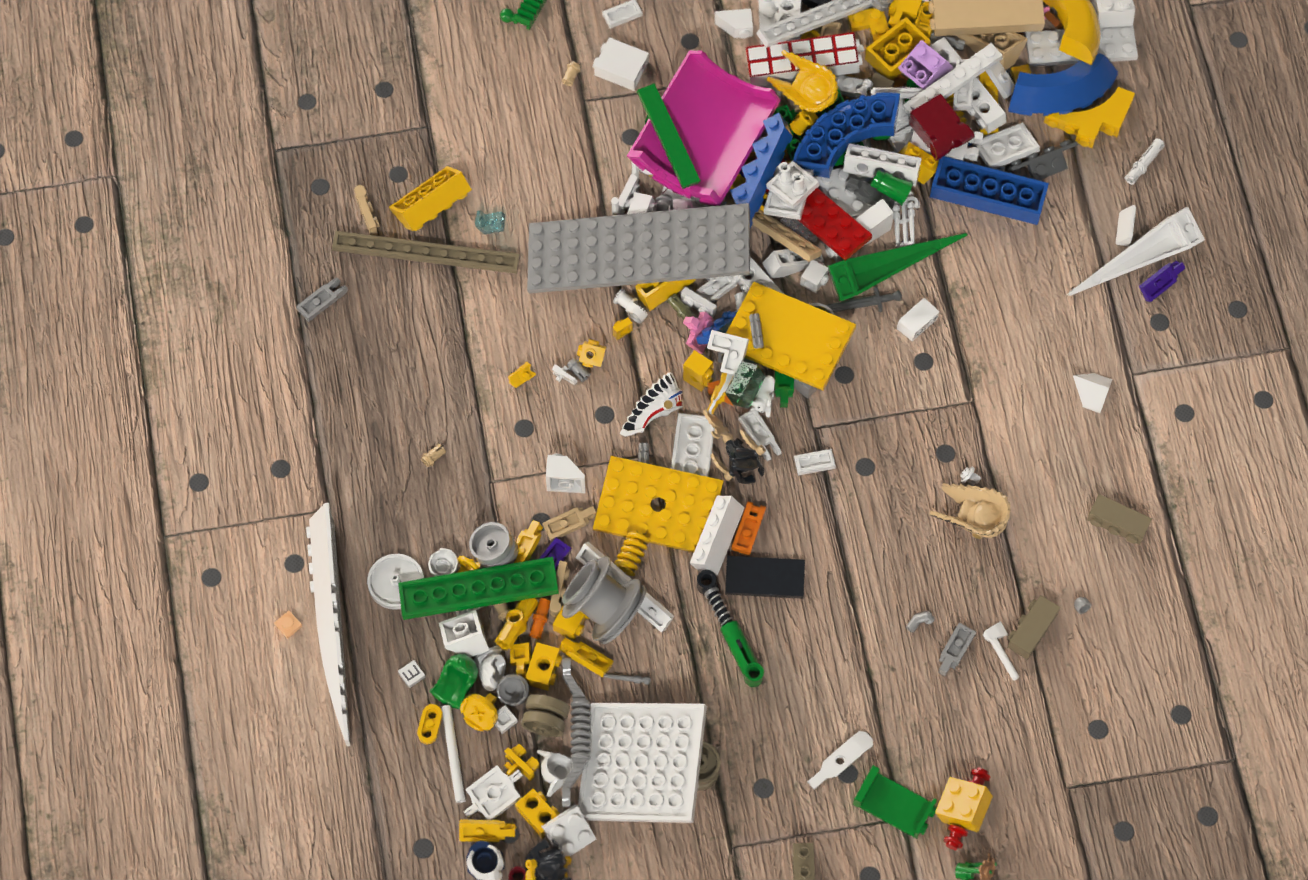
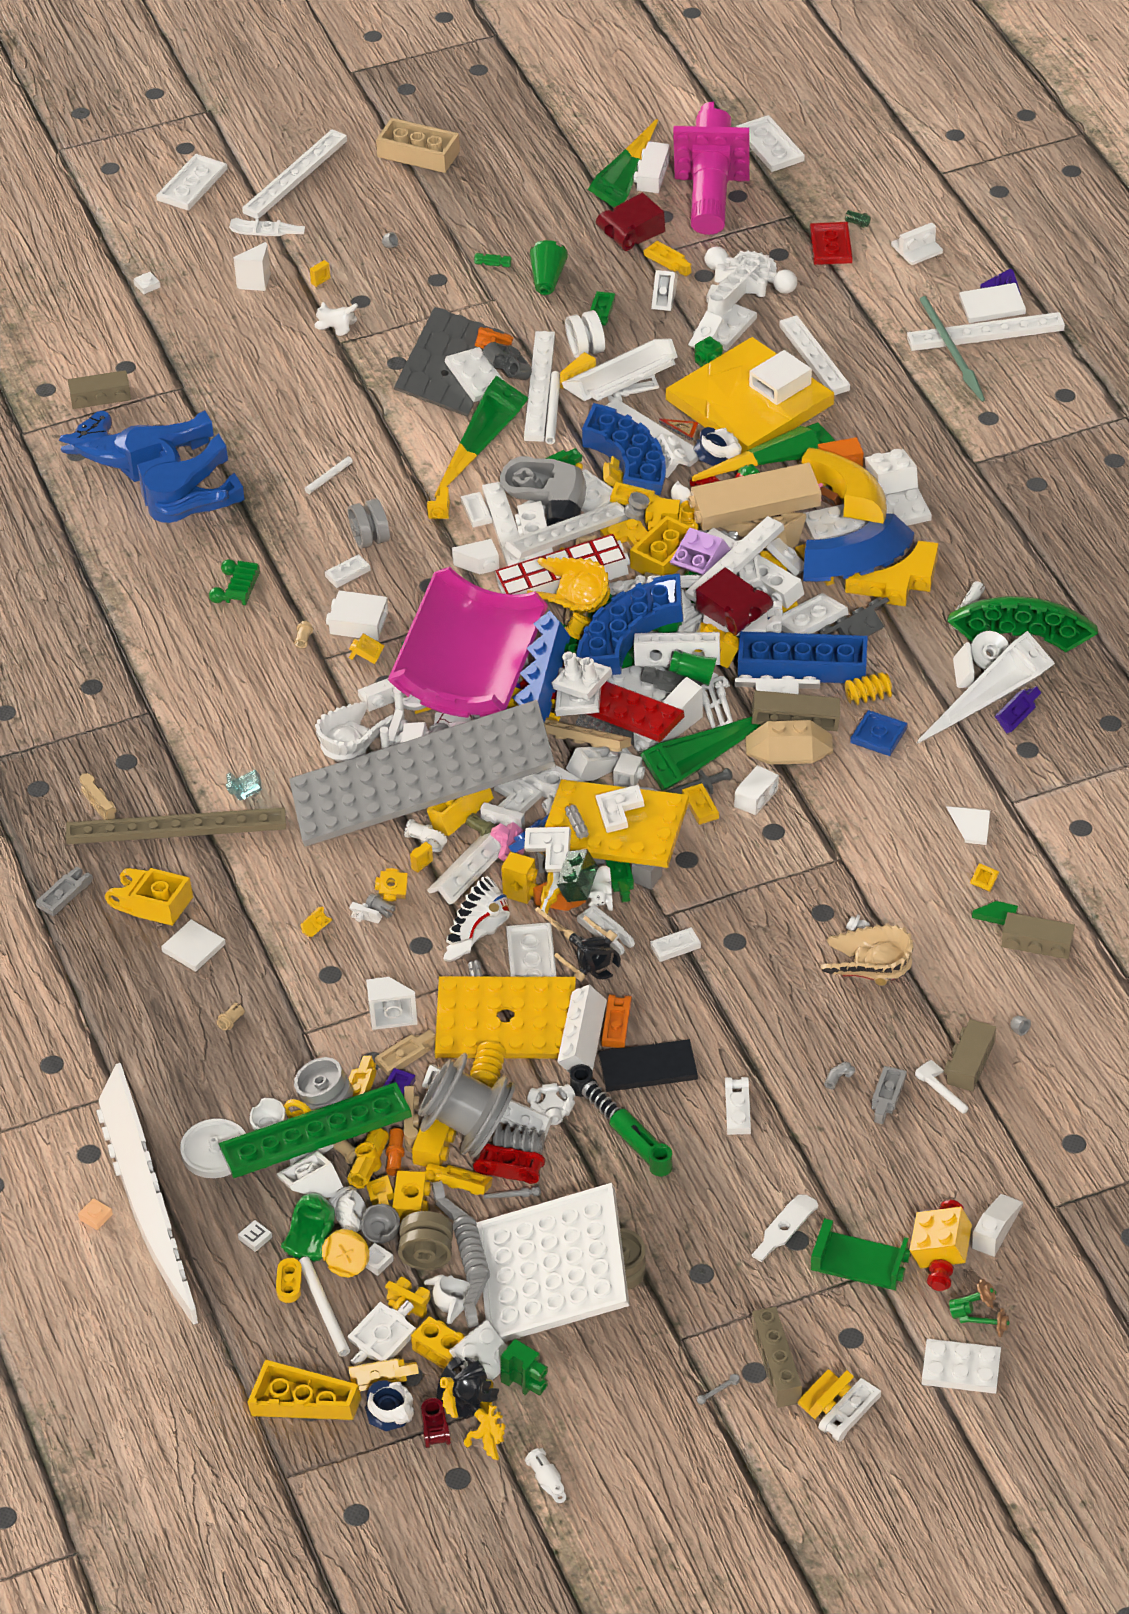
camera: 10 degrees left, 20 degrees down
(392, 321) = (152, 895): none -> yellow brick
(414, 836) = (302, 1394): none -> yellow wedge
(417, 376) = (193, 945): none -> white tile
(430, 198) = (170, 774): yellow slope -> none
(582, 191) = (343, 736): none -> white piece
(599, 853) = (523, 1367): none -> green hips
(619, 148) = (377, 694): none -> white bracket
(621, 101) = (366, 648): none -> yellow bracket
(641, 658) = (509, 1163): none -> red piece
(643, 633) = (518, 1141): none -> light grey piece
(657, 347) = (467, 868): none -> white panel
(668, 136) = (431, 652): green tile -> none
(678, 596) = (552, 1104): none -> white piece
(792, 319) = (615, 803): none -> white plate
(829, 634) = (737, 1106): none -> white plate
(867, 322) = (701, 804): none -> yellow plate
(957, 276) = (789, 742): none -> tan wedge
(958, 218) = (787, 684): none -> white bracket
(970, 244) = (792, 707): none -> dark tan brick
(1014, 795) = (995, 1224): none -> white slope
(1036, 279) = (879, 733): none -> blue tile
(1038, 233) = (868, 687): none -> yellow piece
(1089, 448) = (984, 877): none -> yellow slope
(1090, 486) = (994, 912): none -> green tile
(1151, 205) = (991, 642): none -> white dish
(1187, 192) = (1021, 614): none -> green brick

